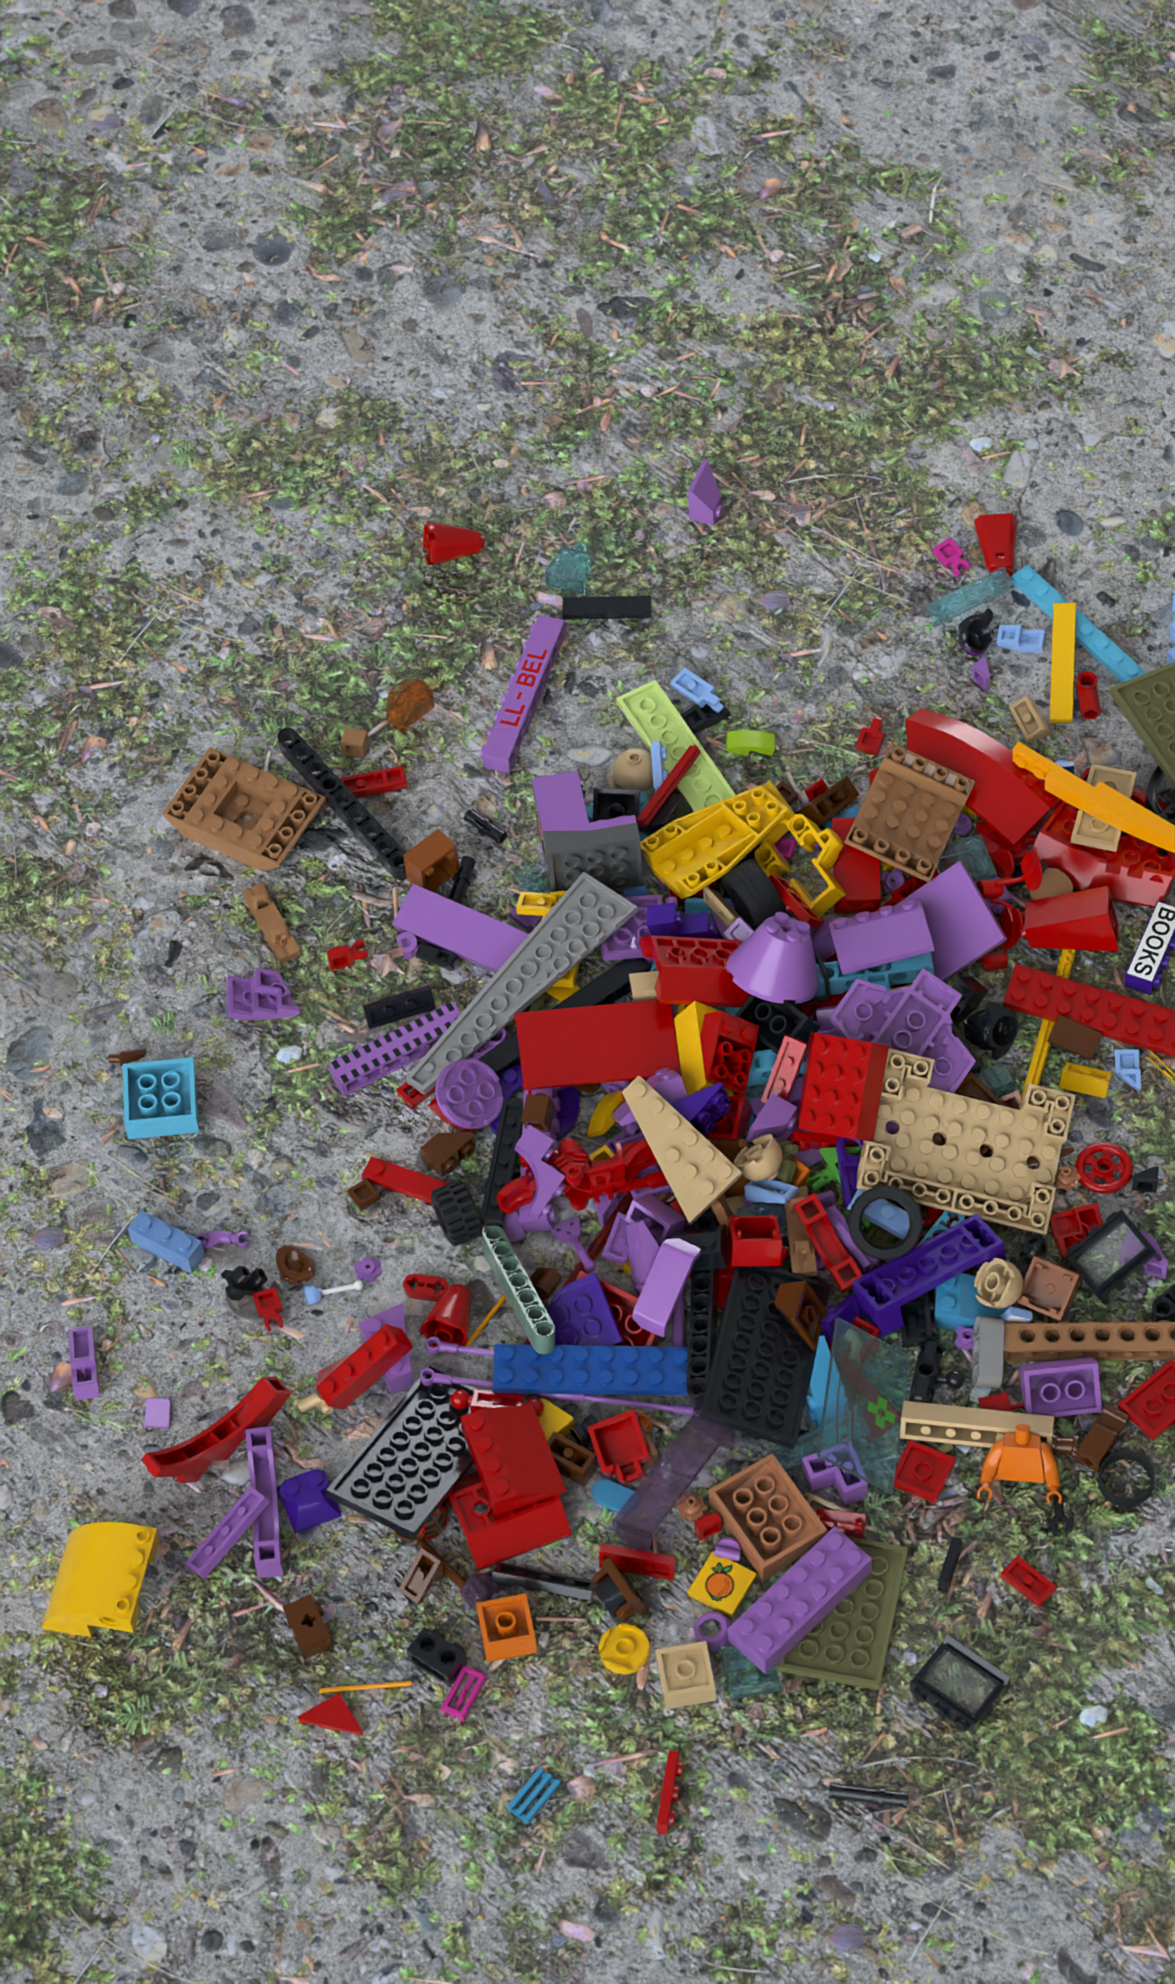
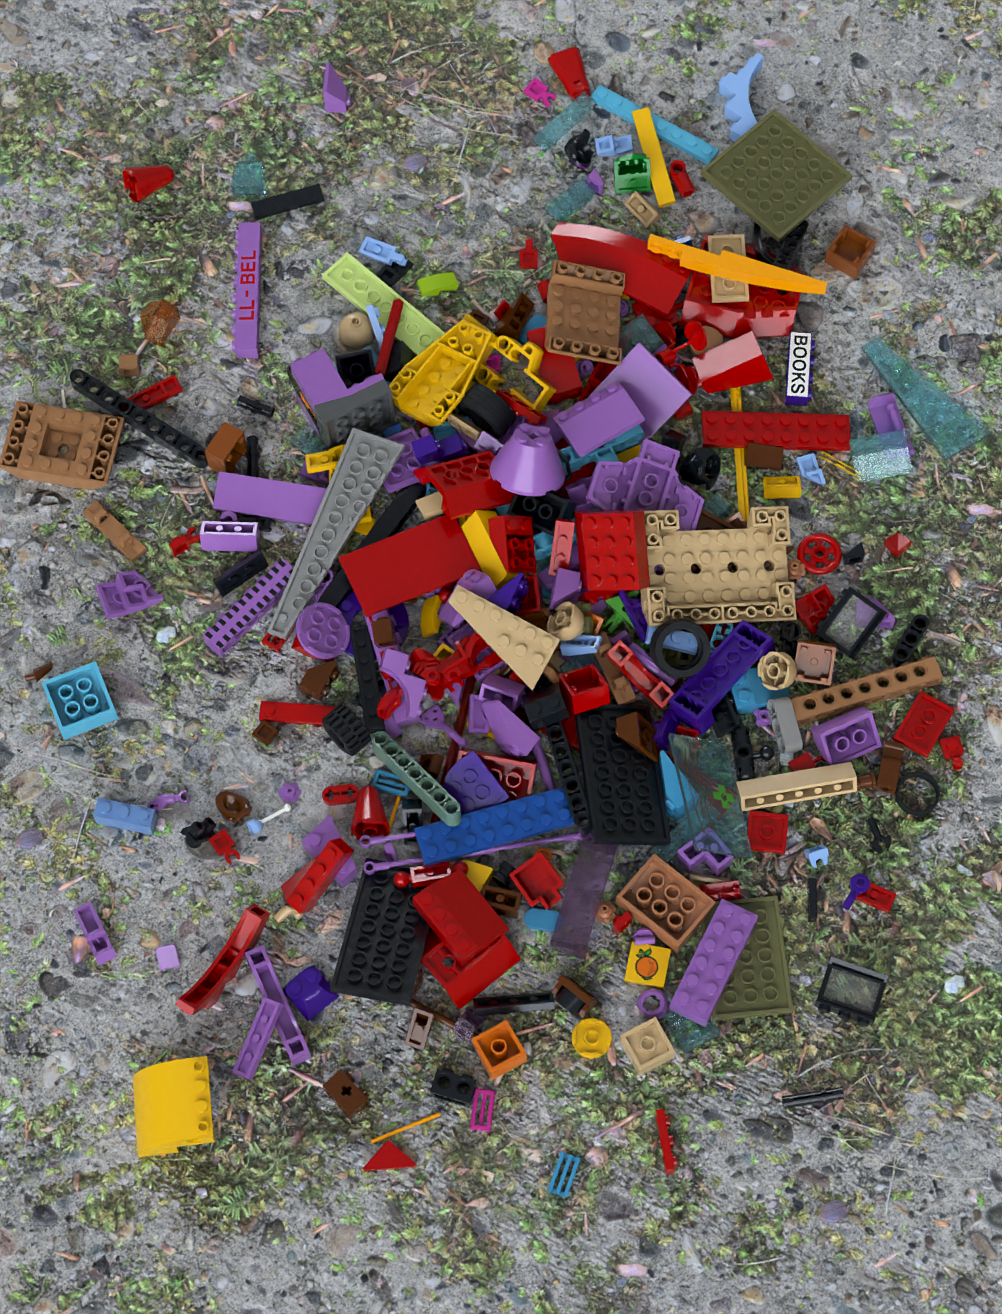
camera: 20 degrees left, 10 degrees up
(401, 961) = (229, 536): none -> medium lavender brick
(459, 1366) = (389, 852): none -> medium lavender tile
(484, 1297) = (405, 794): none -> dark azure tile
(500, 1330) = (412, 818): none -> black slope
(639, 1561) = (579, 967): red plate -> none
(664, 1285) = (531, 745): medium lavender piece -> none
(944, 688) = (570, 201): none -> clear light blue beam
(974, 1512) = (816, 853): none -> light blue tile
(1012, 1560) = (859, 884): none -> dark purple plate
(1016, 1315) = (793, 690): light blue tile -> none
(1022, 1459) = (836, 803): orange torso -> none
(1028, 672) = (632, 173): none -> green piece

